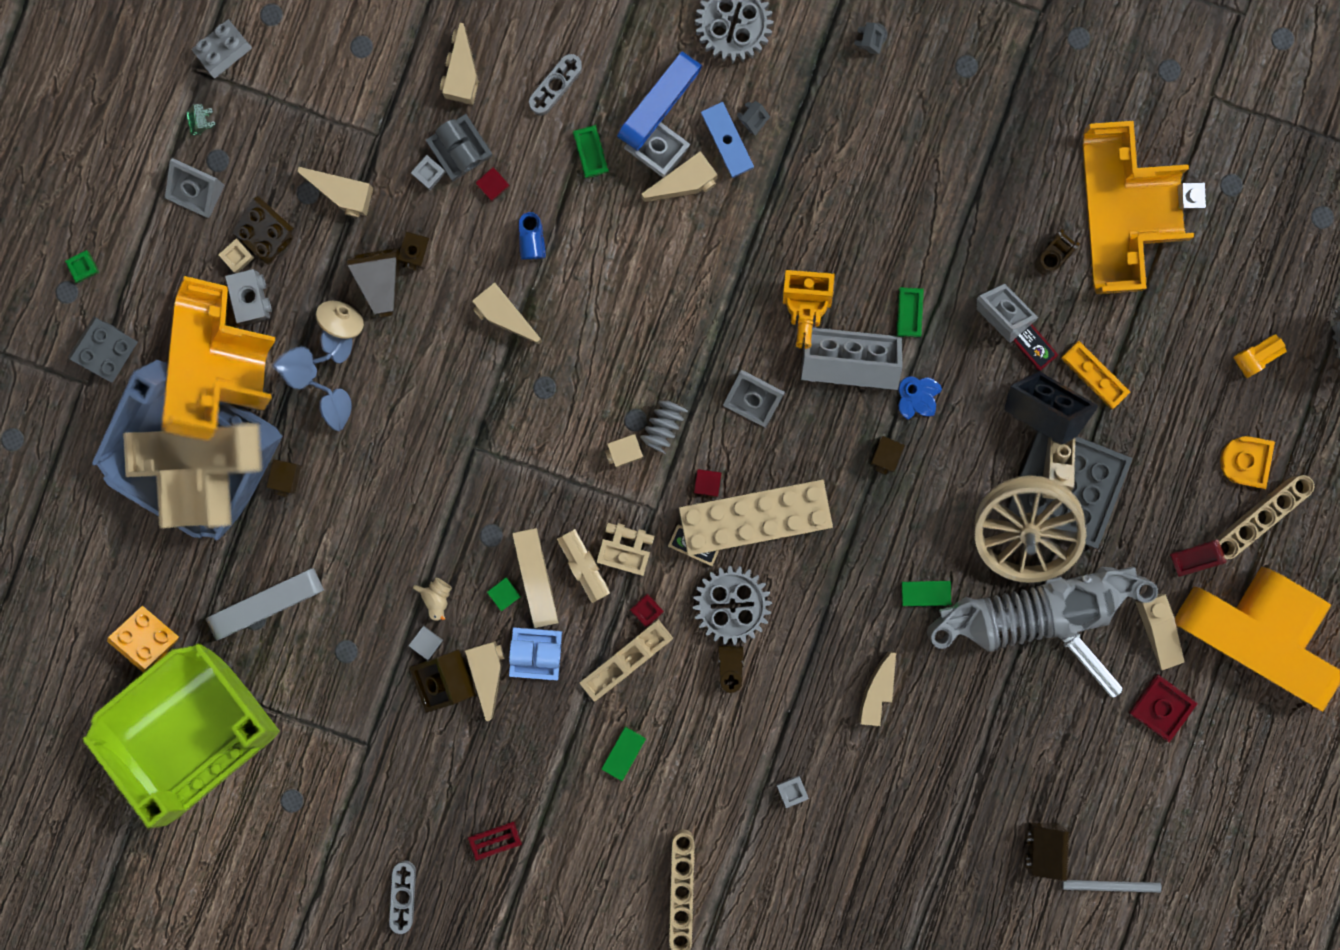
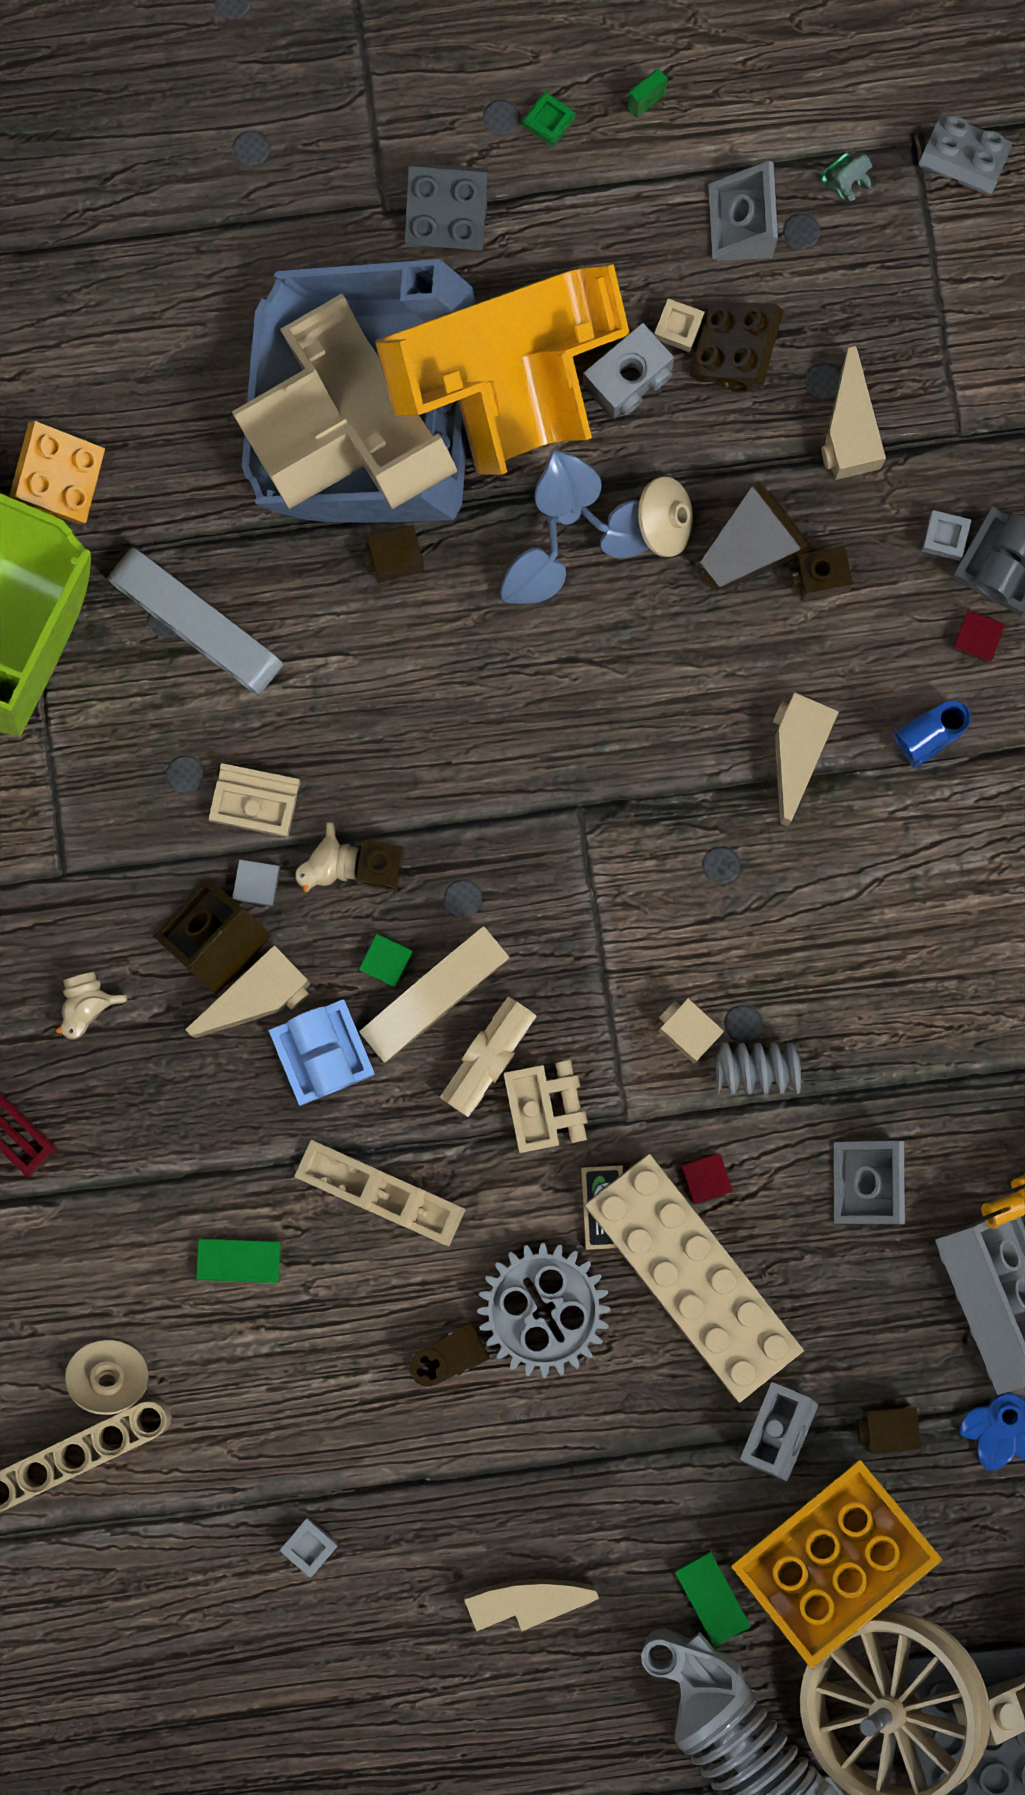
camera: 60 degrees right, 5 degrees down
(95, 205) = (647, 92): none -> green tile
(380, 621) = (254, 800): none -> tan plate
(444, 768) = (84, 1004): none -> tan animal
(451, 571) = (380, 865): none -> dark brown brick
(641, 850) = (106, 1362): none -> tan dish
(647, 610) = (469, 1185): dark red tile -> none
(858, 514) = (779, 1431): none -> light grey brick
(940, 520) = (836, 1564): none -> light orange slope

